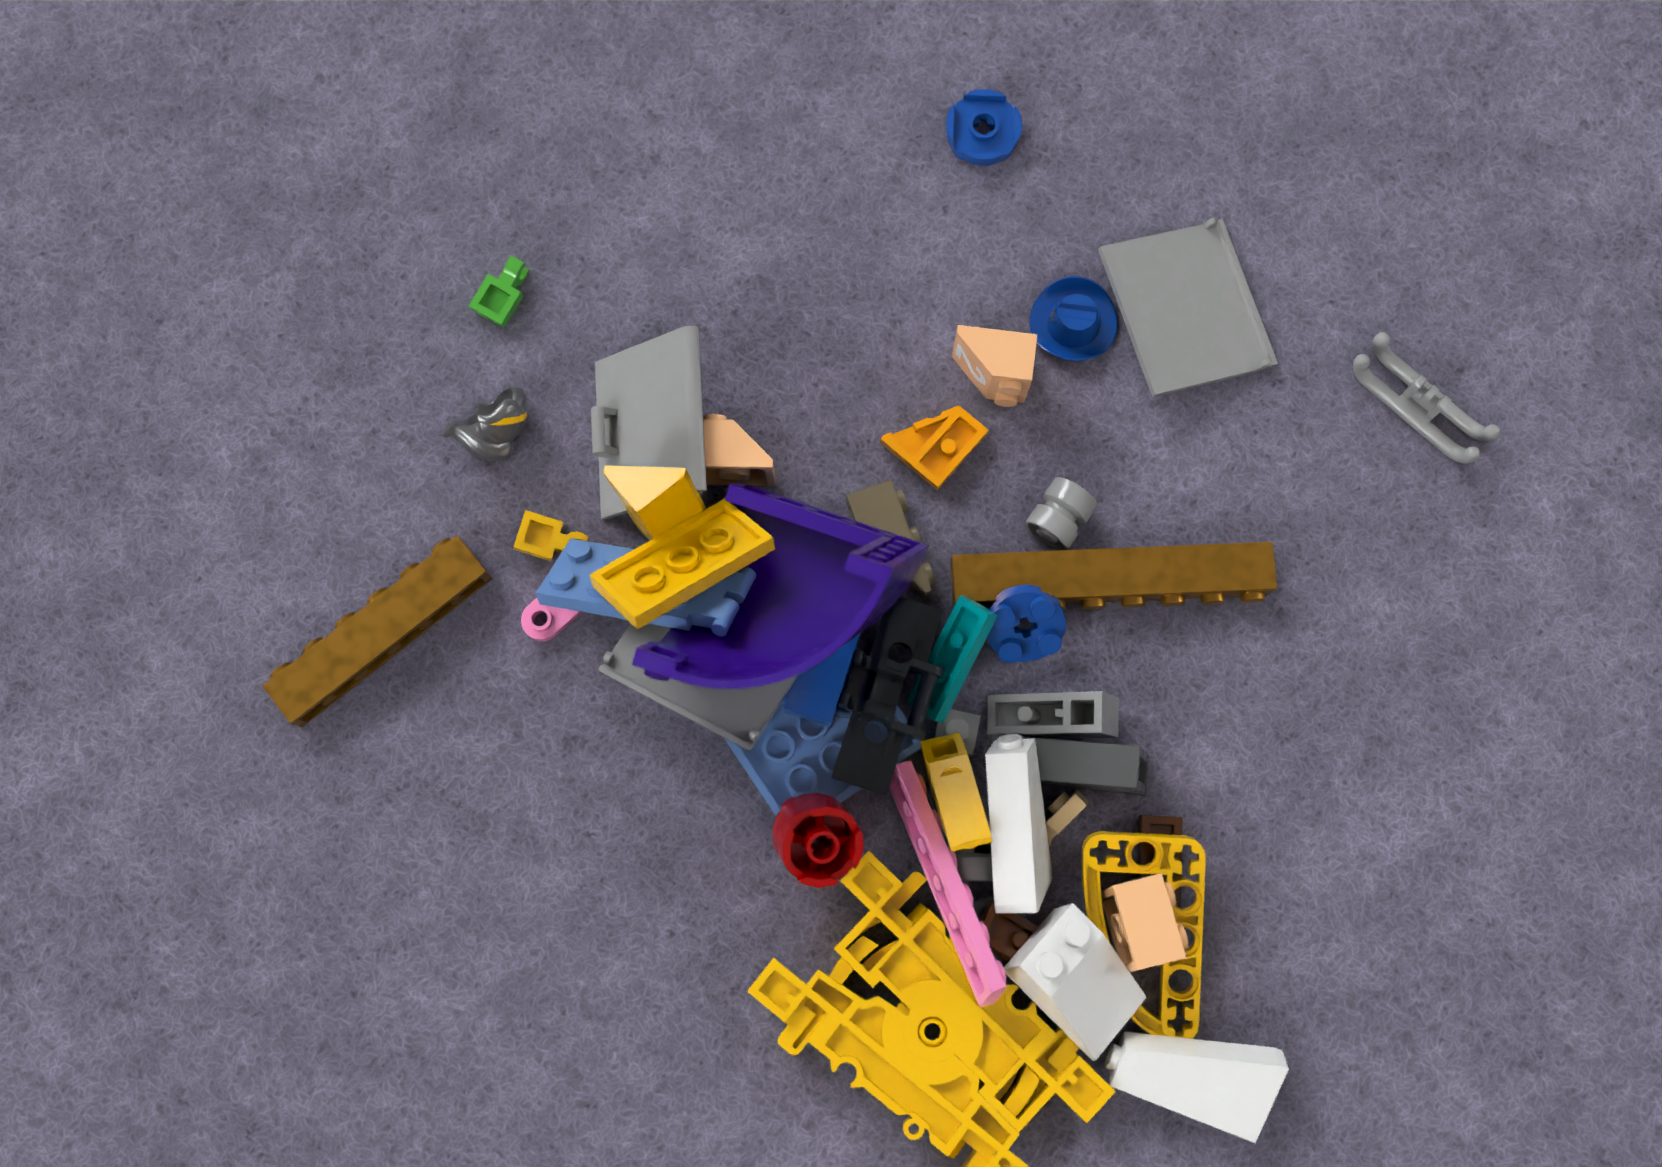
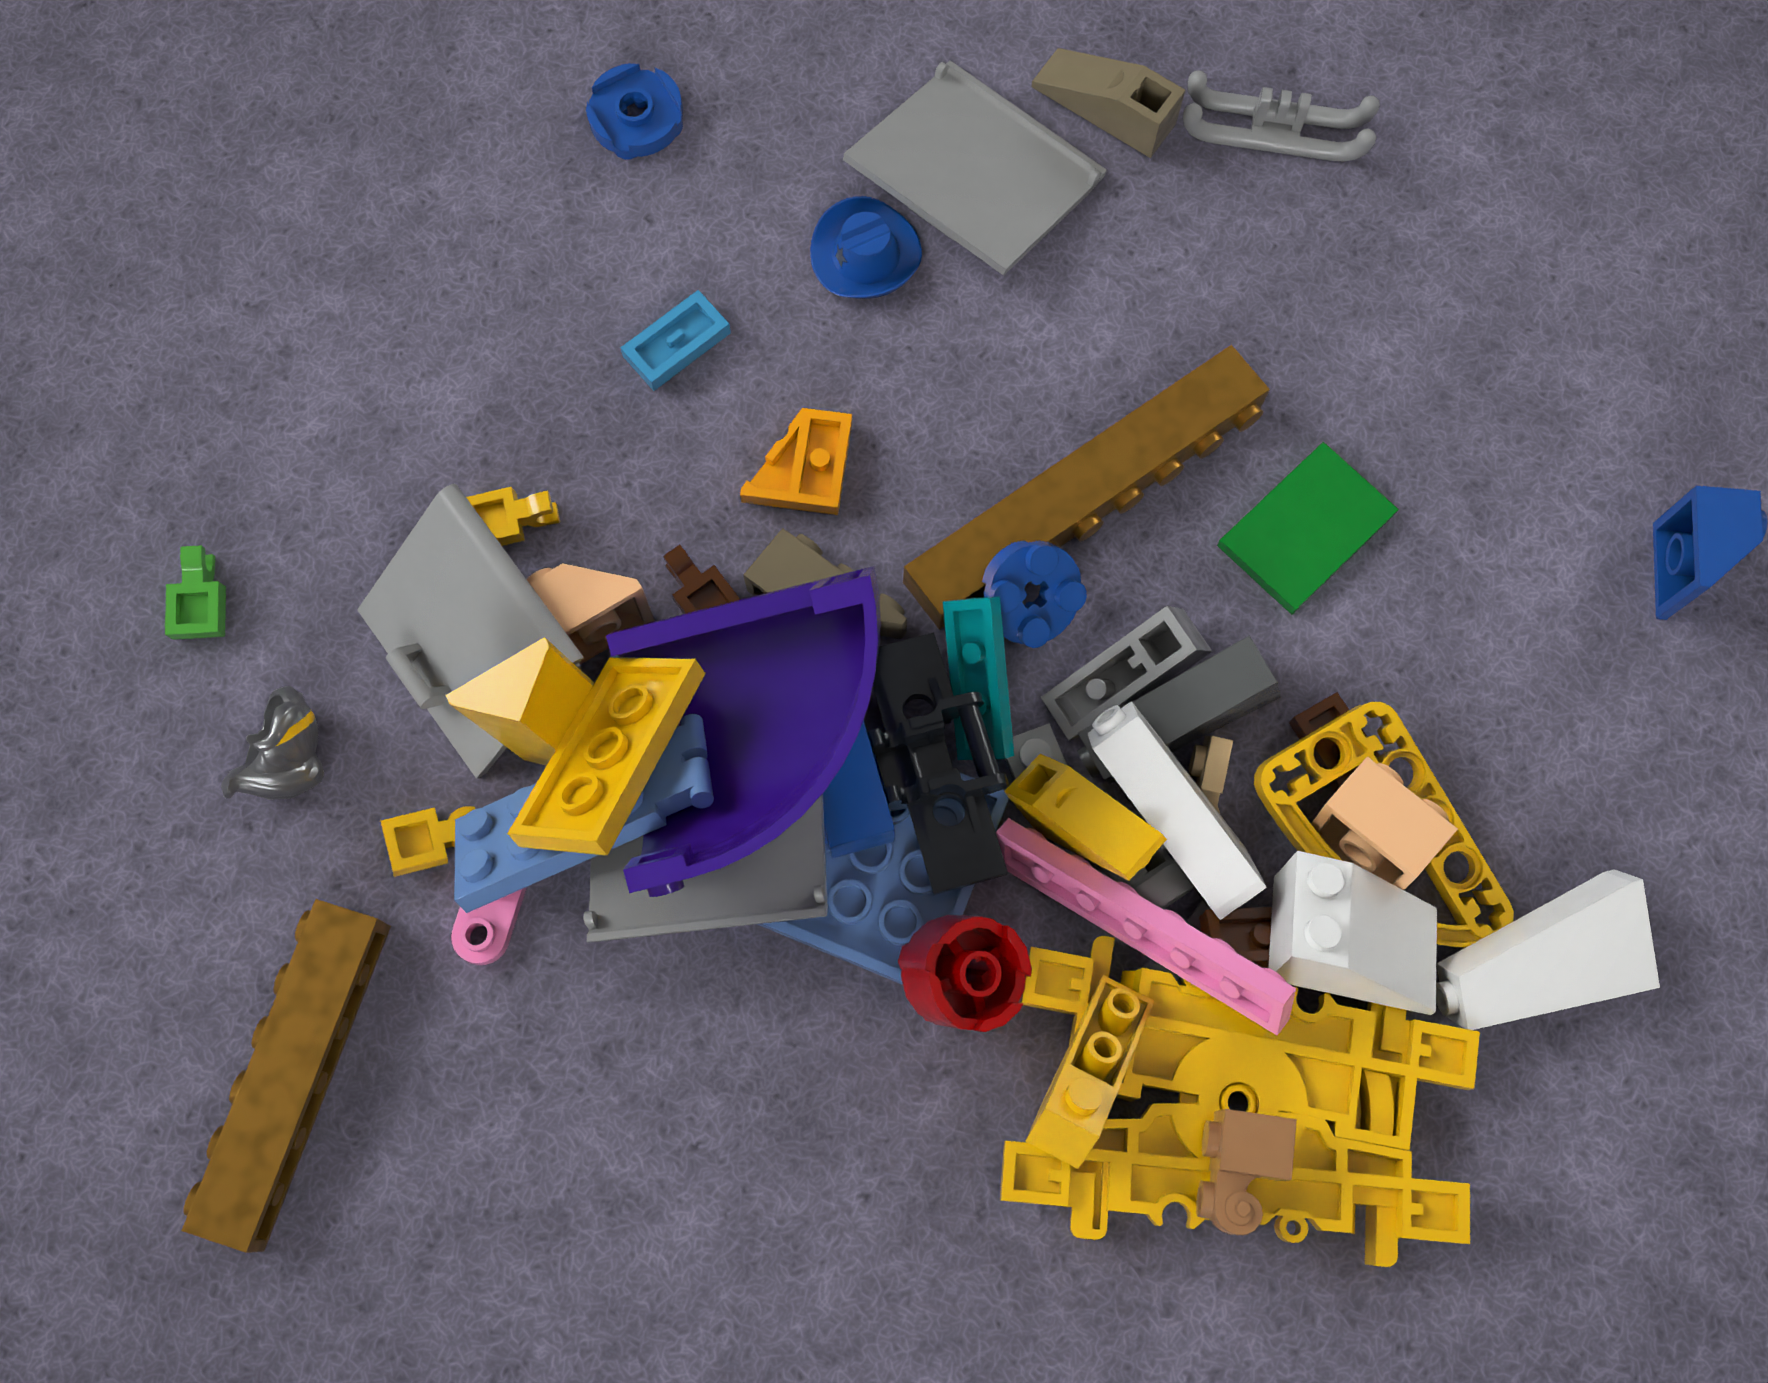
camera: 35 degrees left, 5 degrees down
(721, 356) = (507, 514): none -> yellow plate
(815, 488) = (698, 589): none -> reddish brown plate
(852, 951) = (1090, 1073): none -> yellow slope
(907, 306) = (675, 340): none -> dark azure plate
(911, 1062) = (1239, 1151): none -> medium nougat brick
(996, 362) = (813, 334): light nougat slope -> none
(1064, 509) = (990, 453): light grey wheel -> none
(1242, 696) = (1307, 528): none -> green tile
(1315, 314) = (1114, 96): none -> dark tan slope
(1500, 879) = (1702, 542): none -> blue slope

